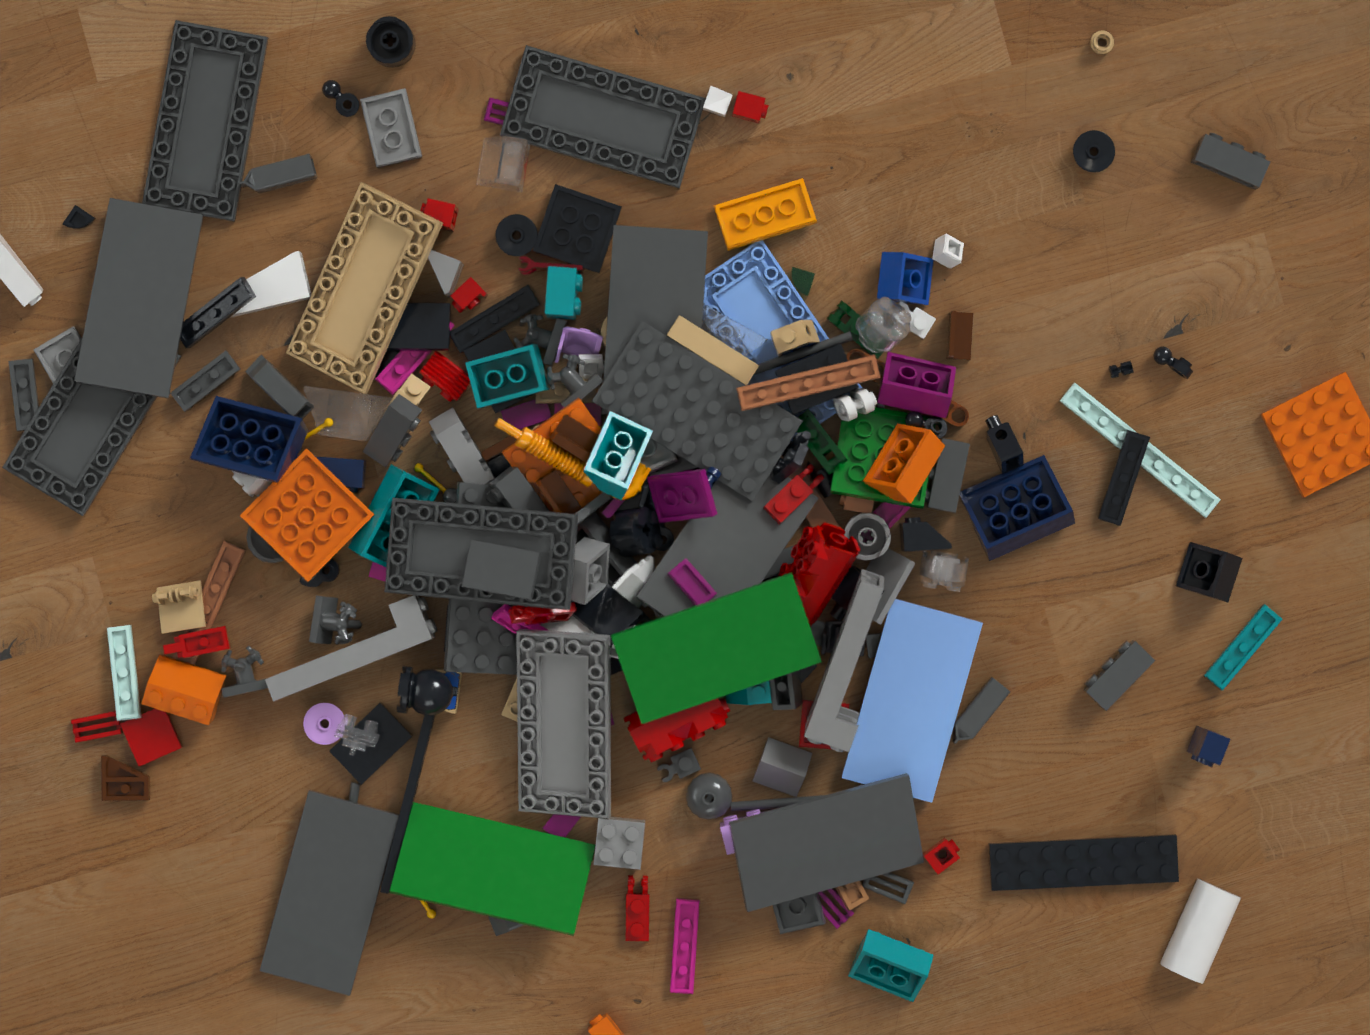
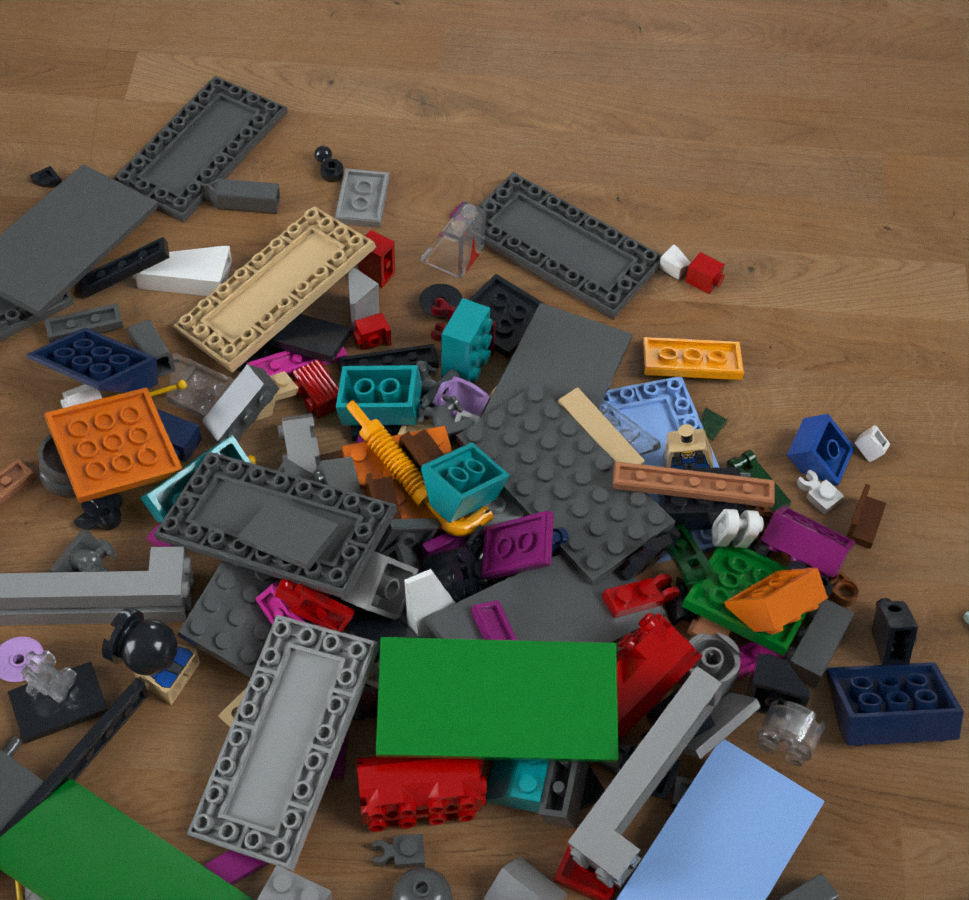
camera: 15 degrees right, 35 degrees down
(402, 49) = (392, 134): black brick -> none
(883, 325) = (791, 473): clear brick -> none

